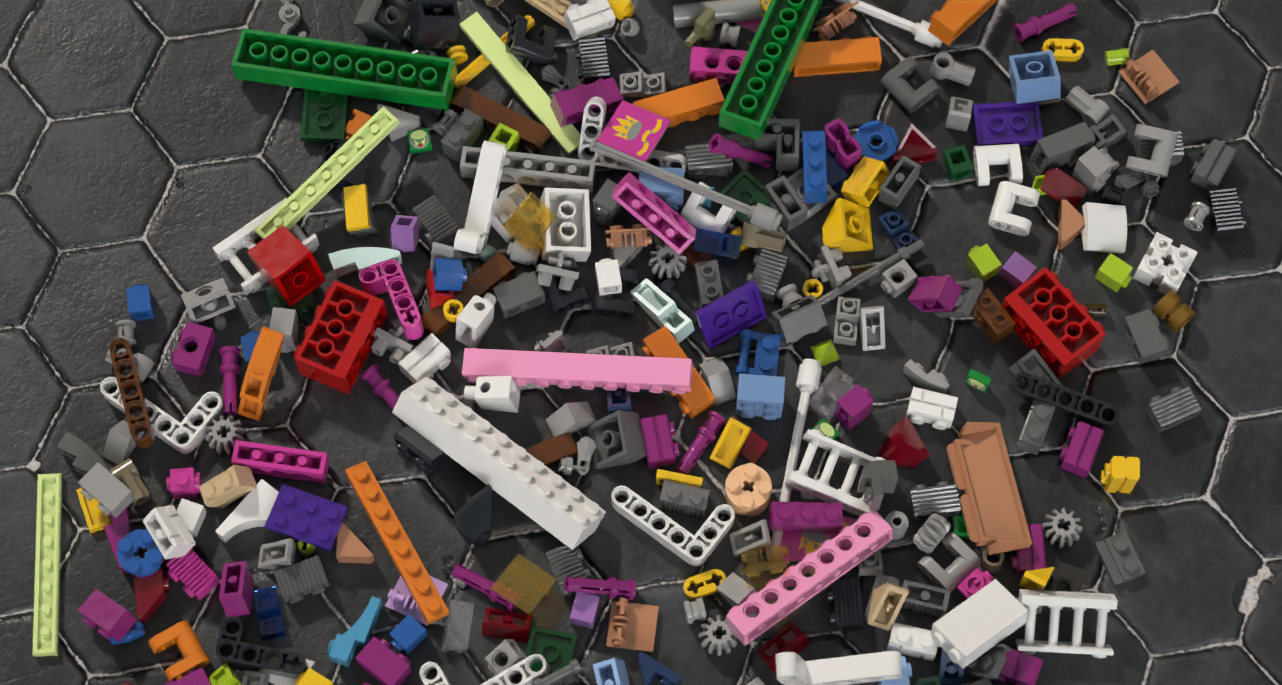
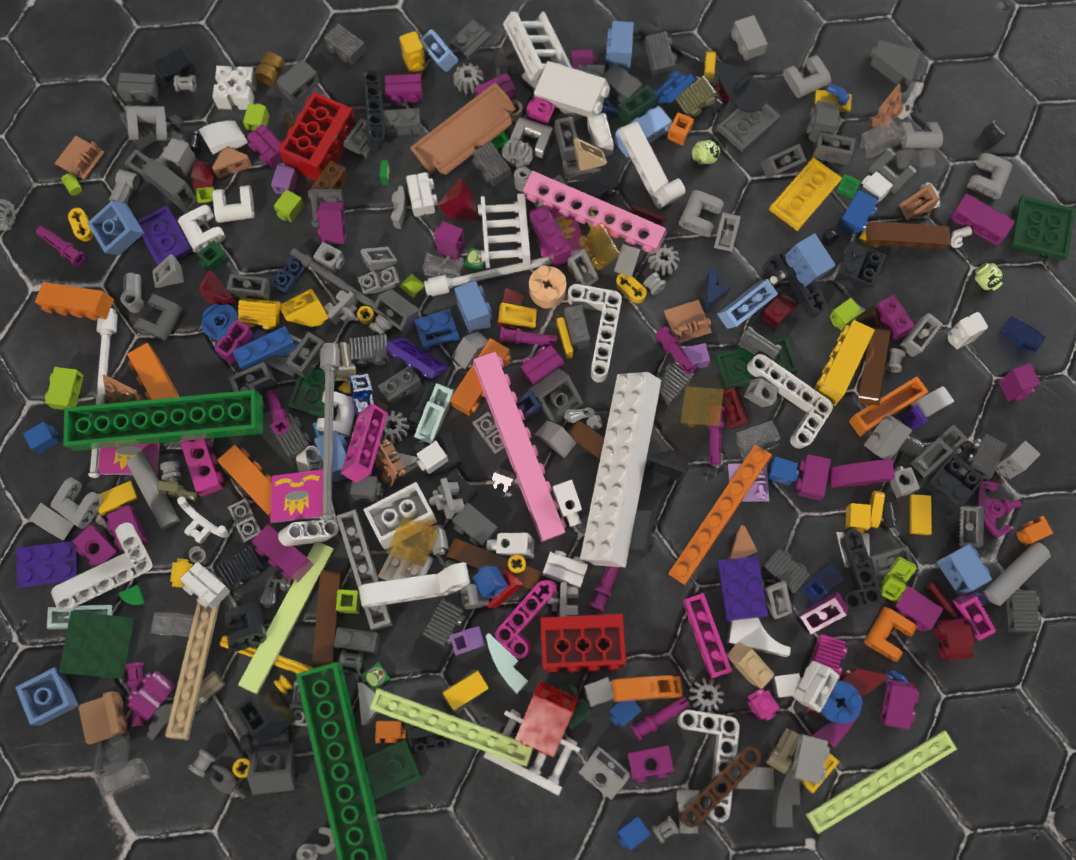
camera: 115 degrees left, 5 degrees up
(344, 645) = (802, 506): dark azure slope -> none
(664, 44) = (198, 521): none -> white piece
(876, 479) = (501, 198): dark grey brick -> none
(1036, 579) = (515, 72): yellow slope -> none
(1074, 269) = (266, 145): none -> magenta brick
(1113, 507) = (438, 50): none -> light blue brick

